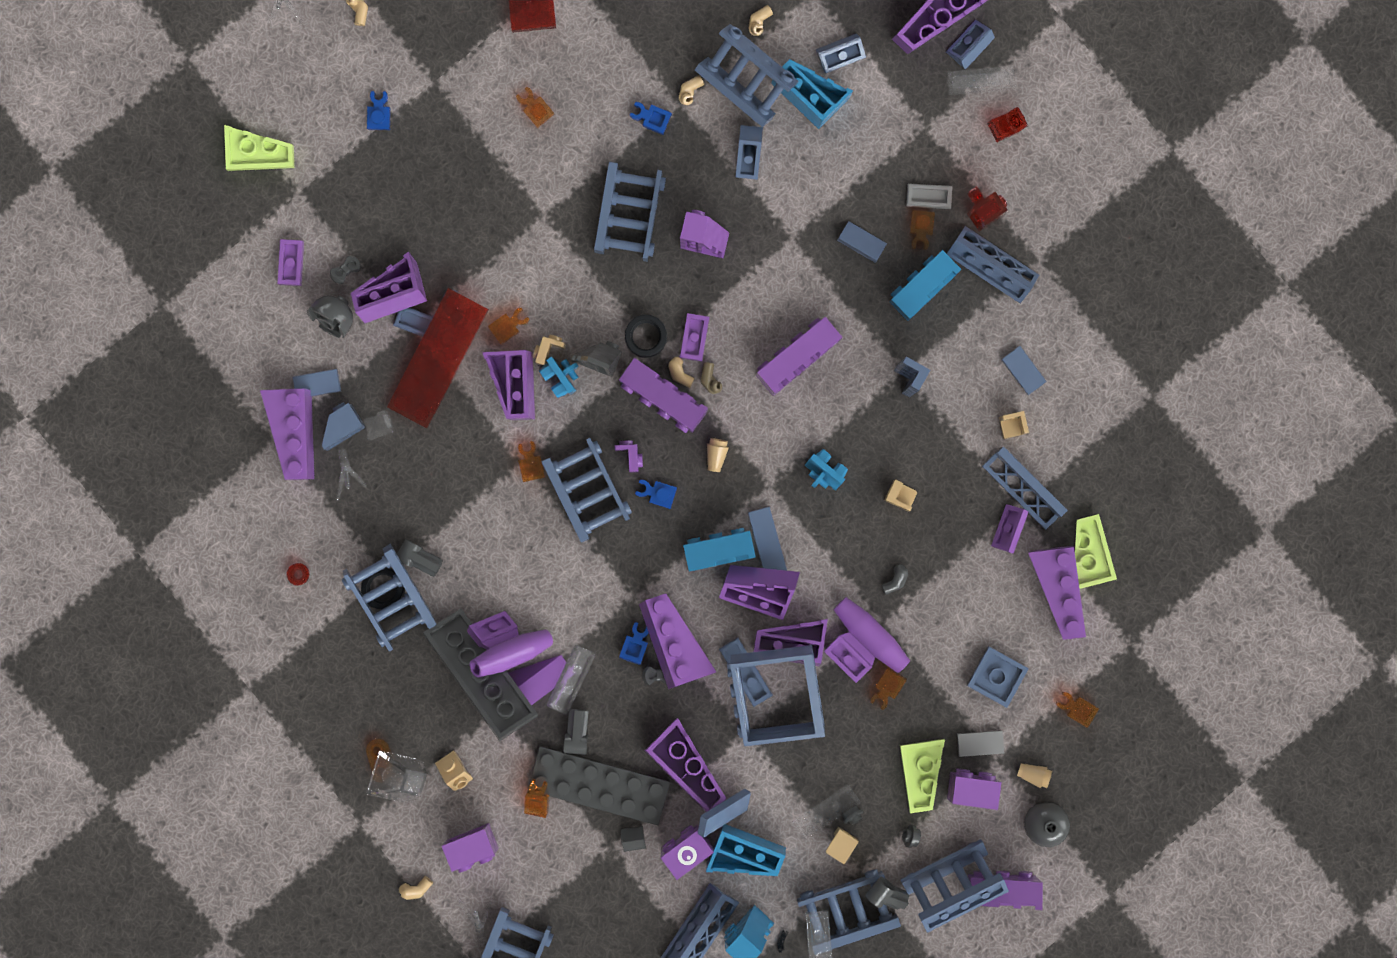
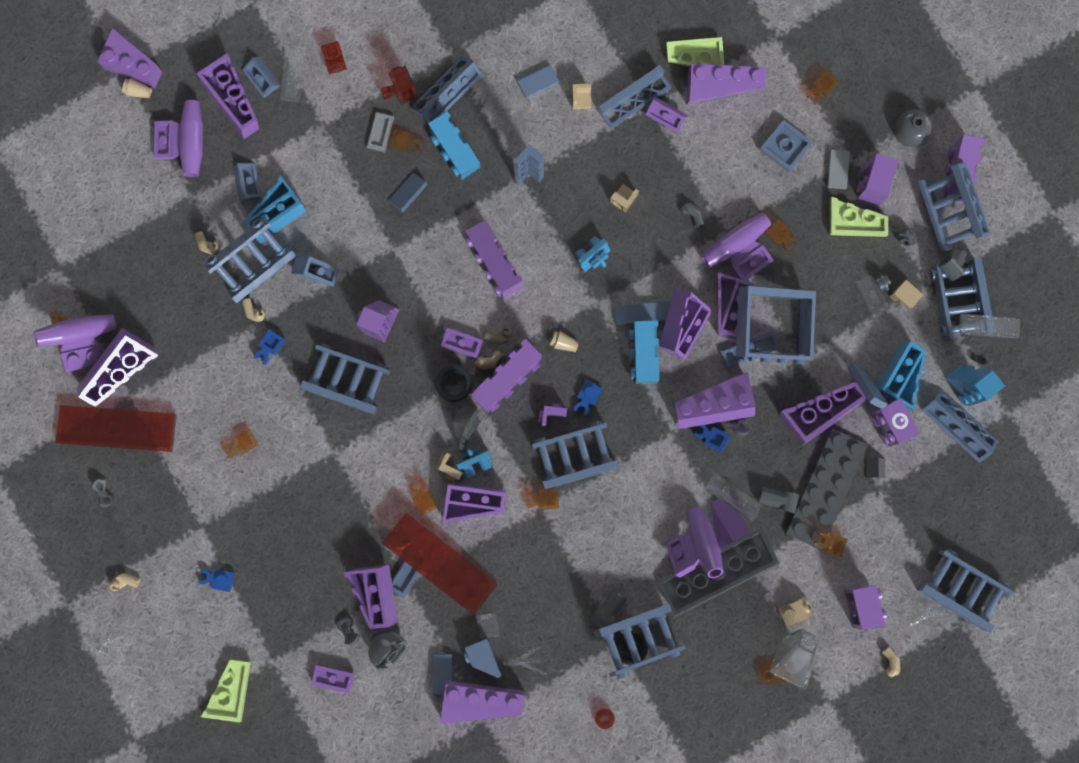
camera: 80 degrees left, 5 degrees down
(1035, 775) = (871, 129): tan cone -> none

